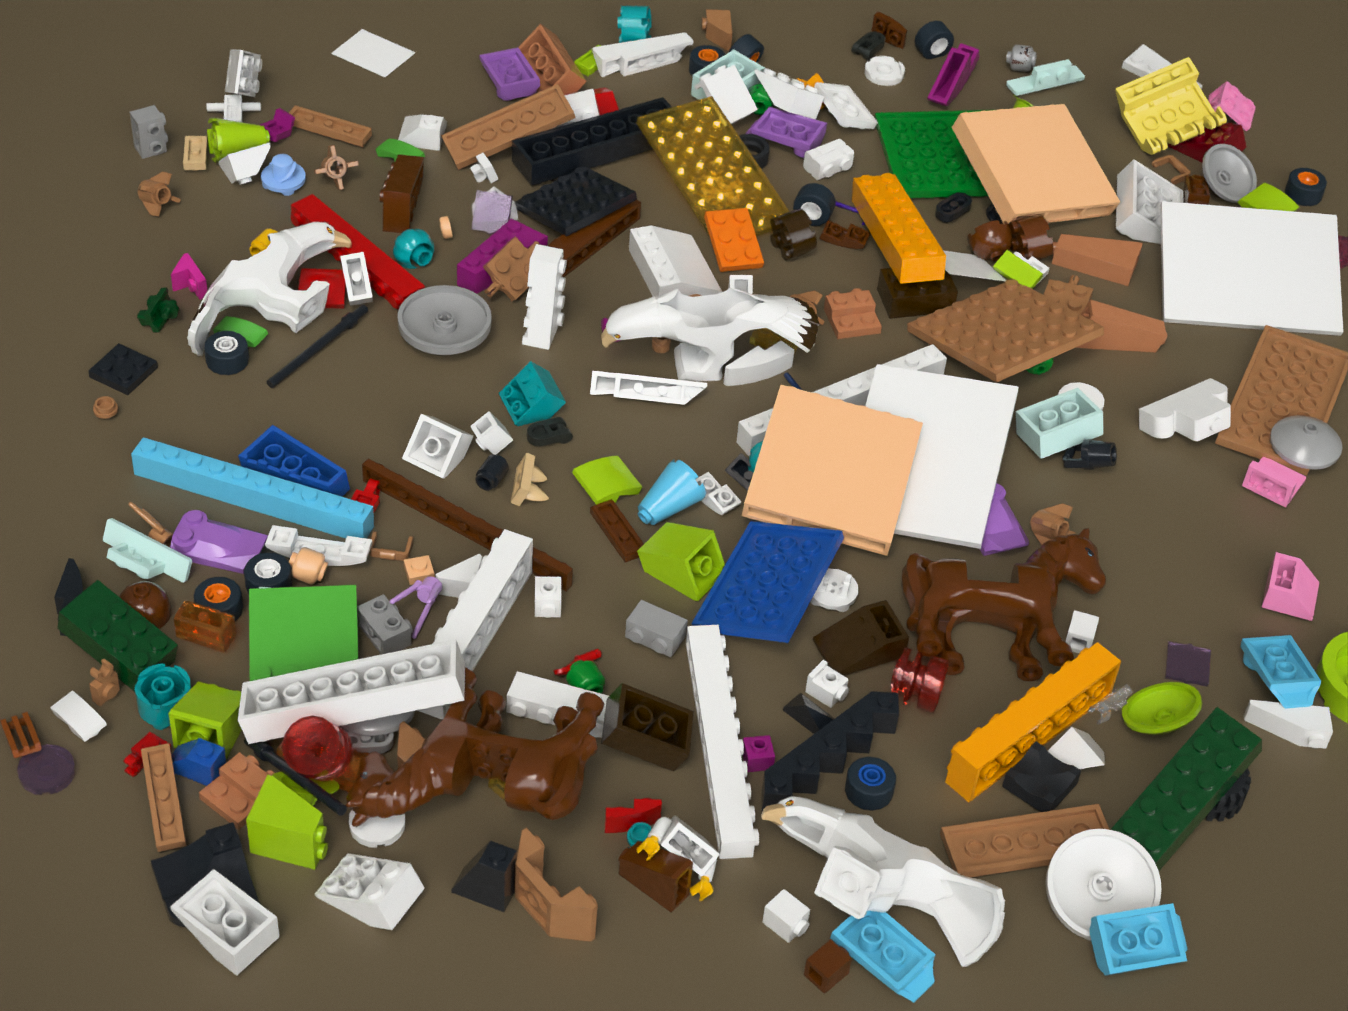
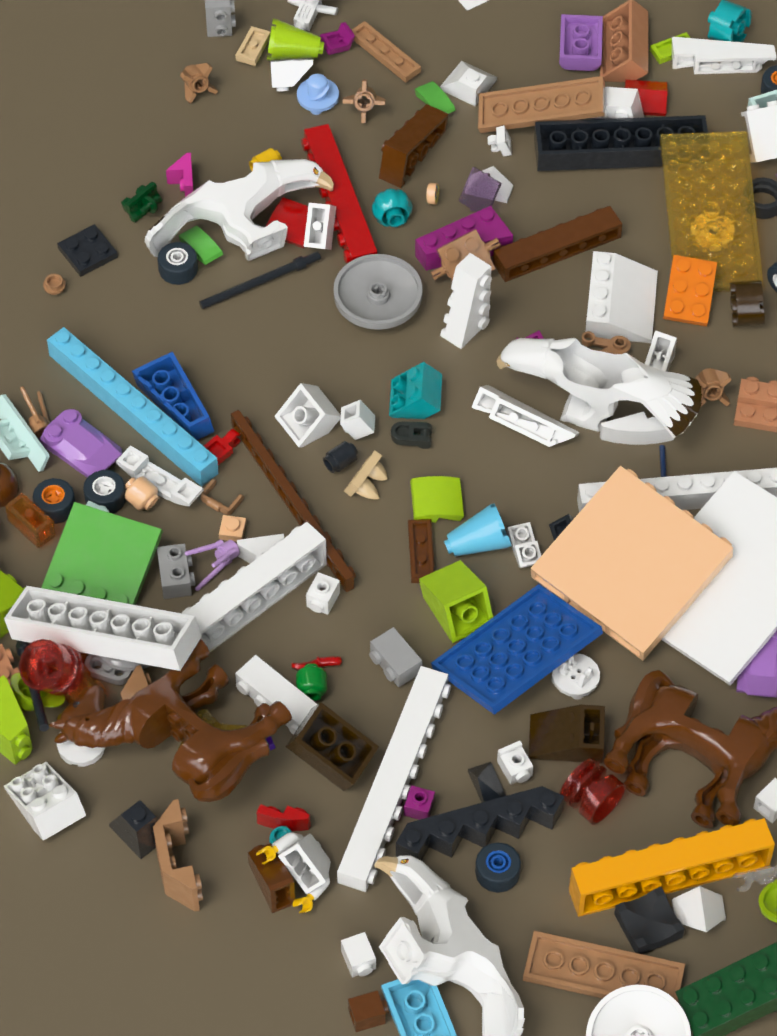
camera: 30 degrees right, 10 degrees up
(575, 200) = (563, 203): black plate -> none

